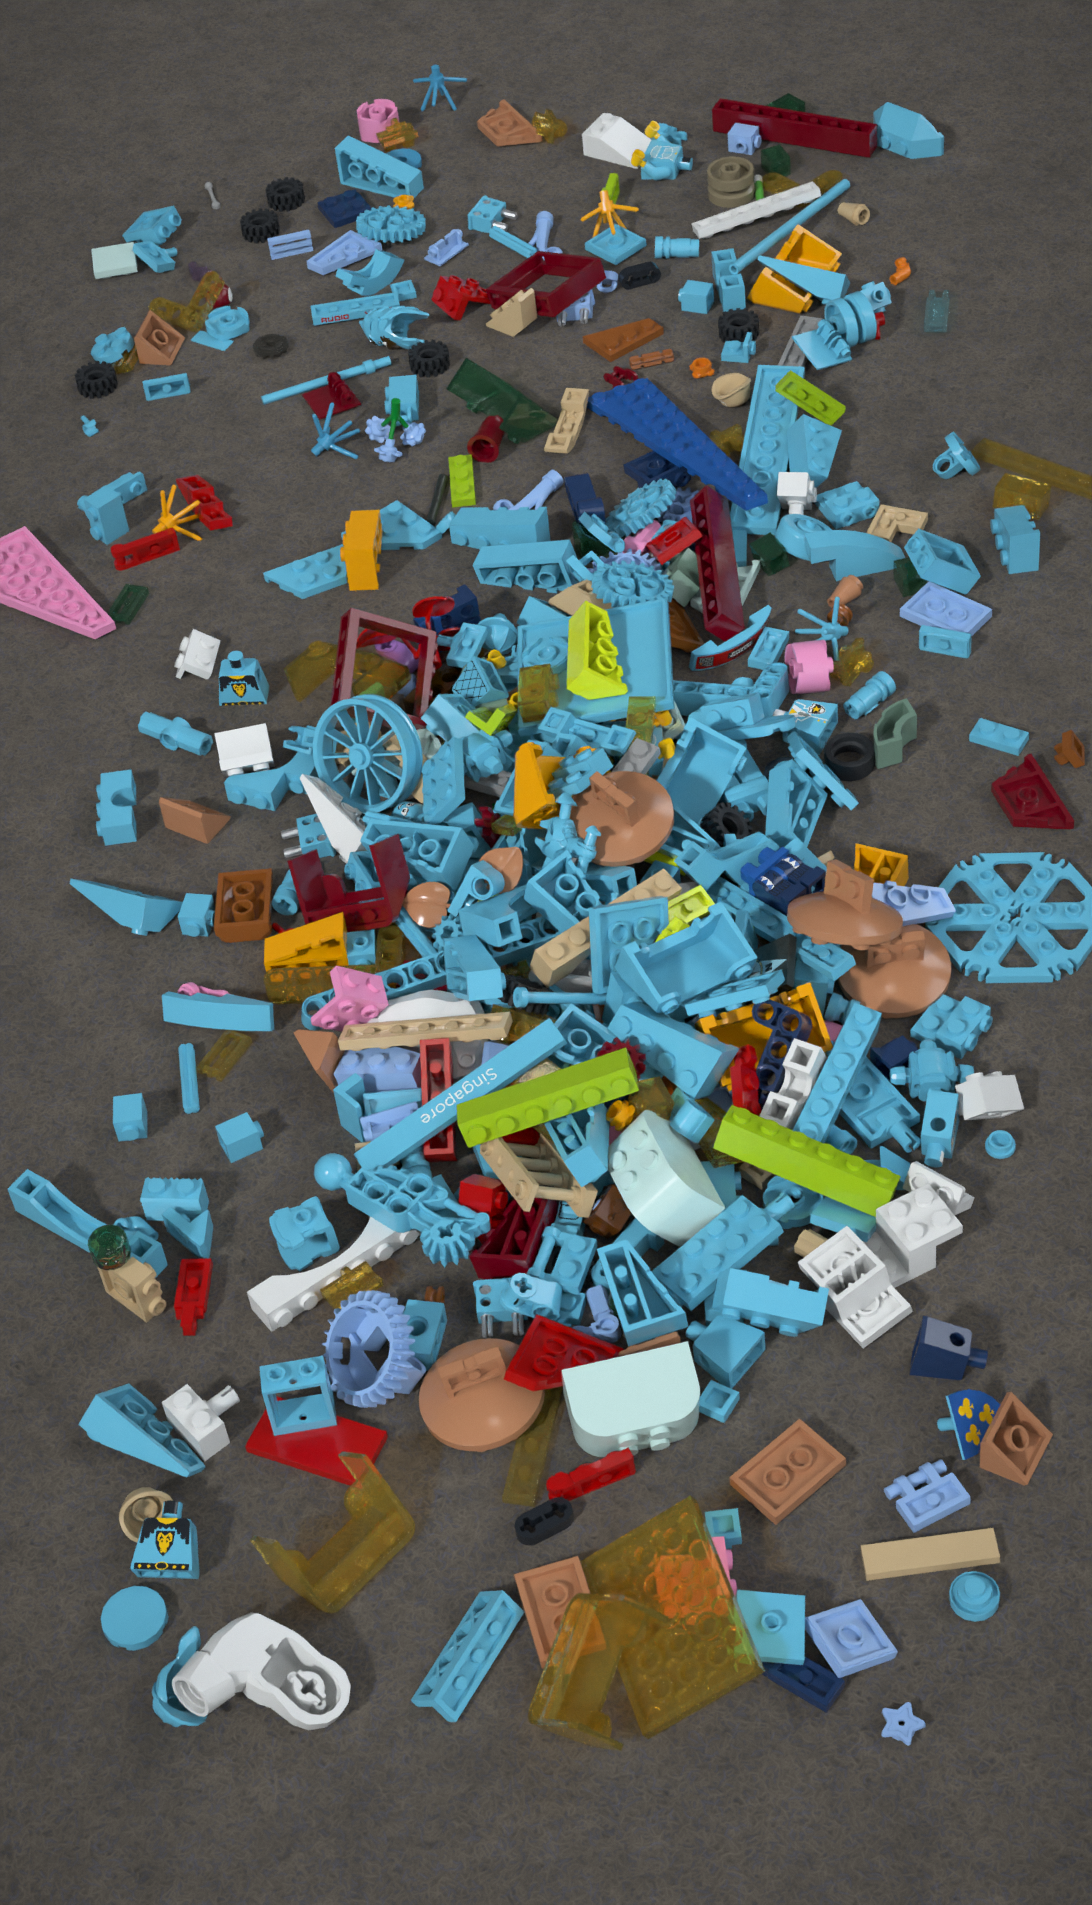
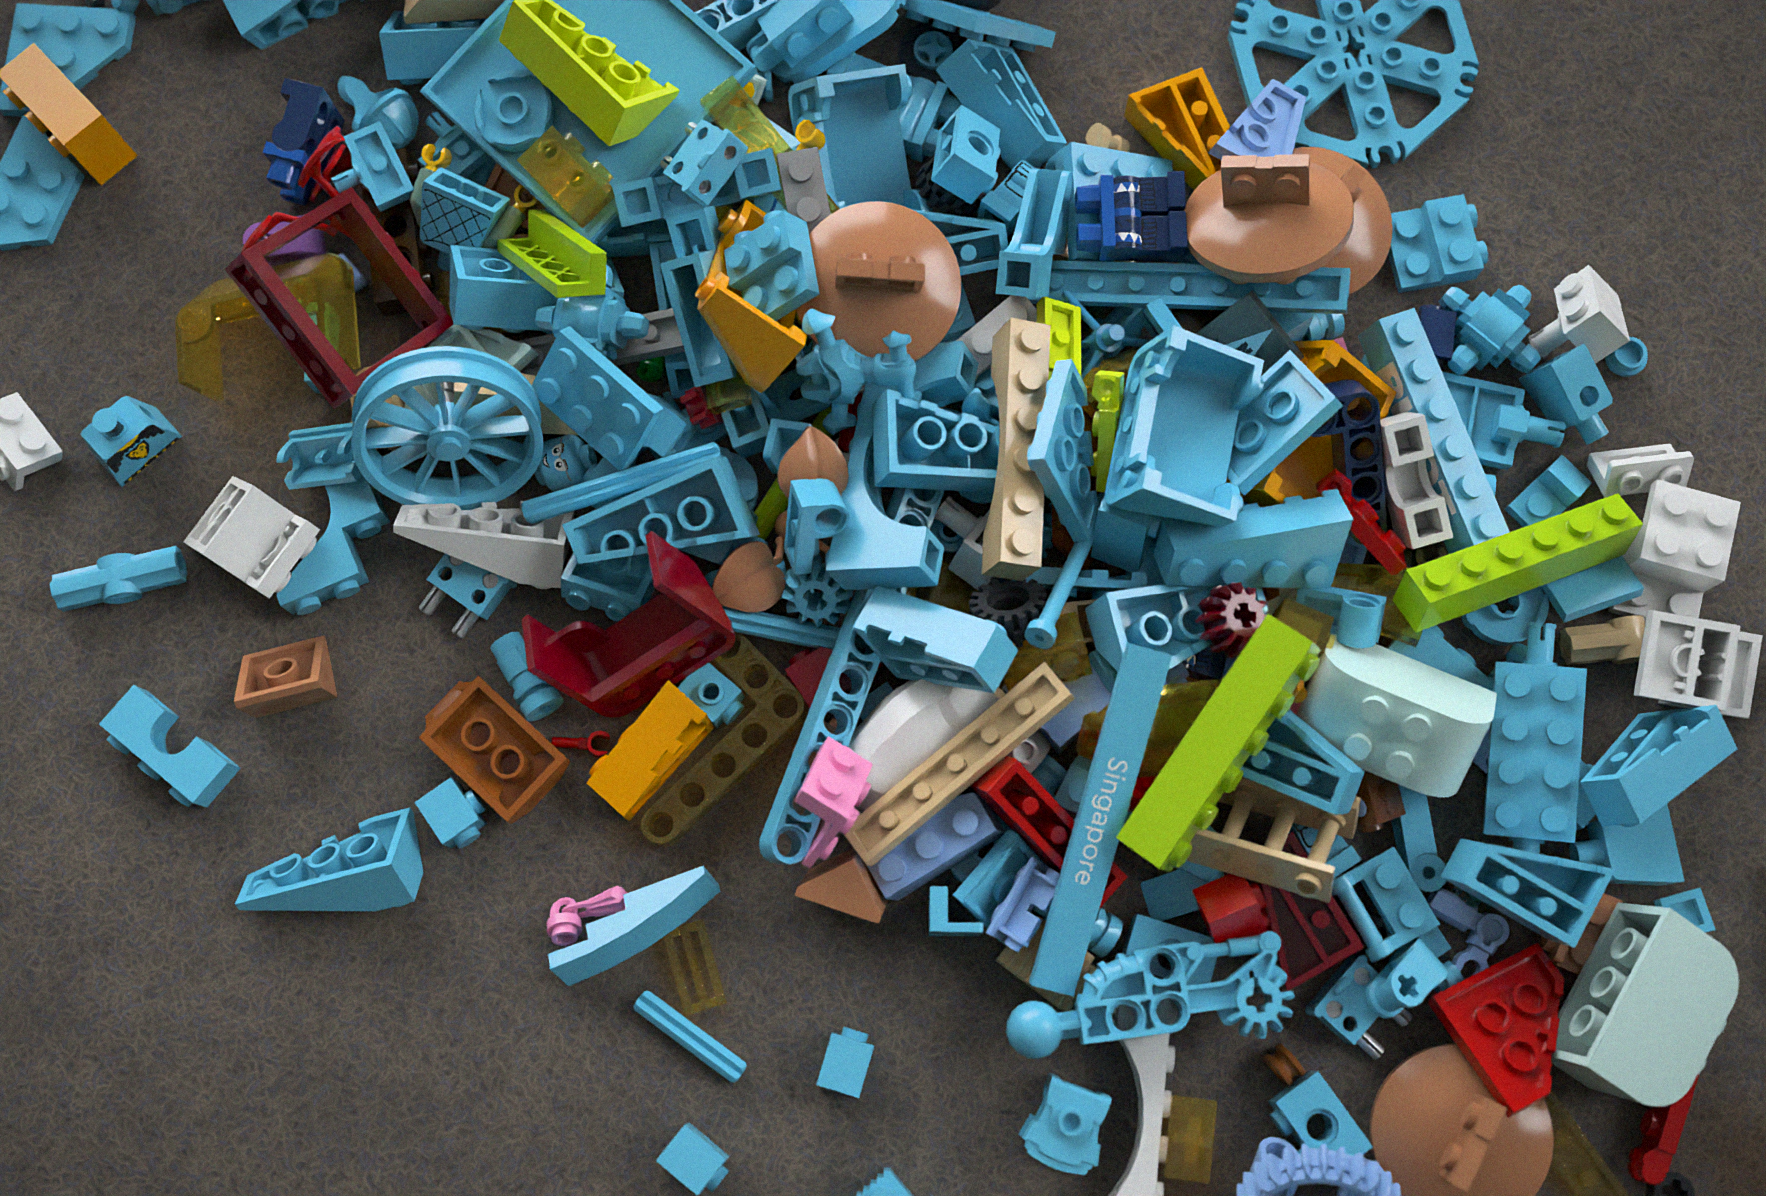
camera: 50 degrees left, 30 degrees up
(597, 717) = (704, 161): none -> medium azure piece
(739, 811) = (966, 155): none -> medium azure brick

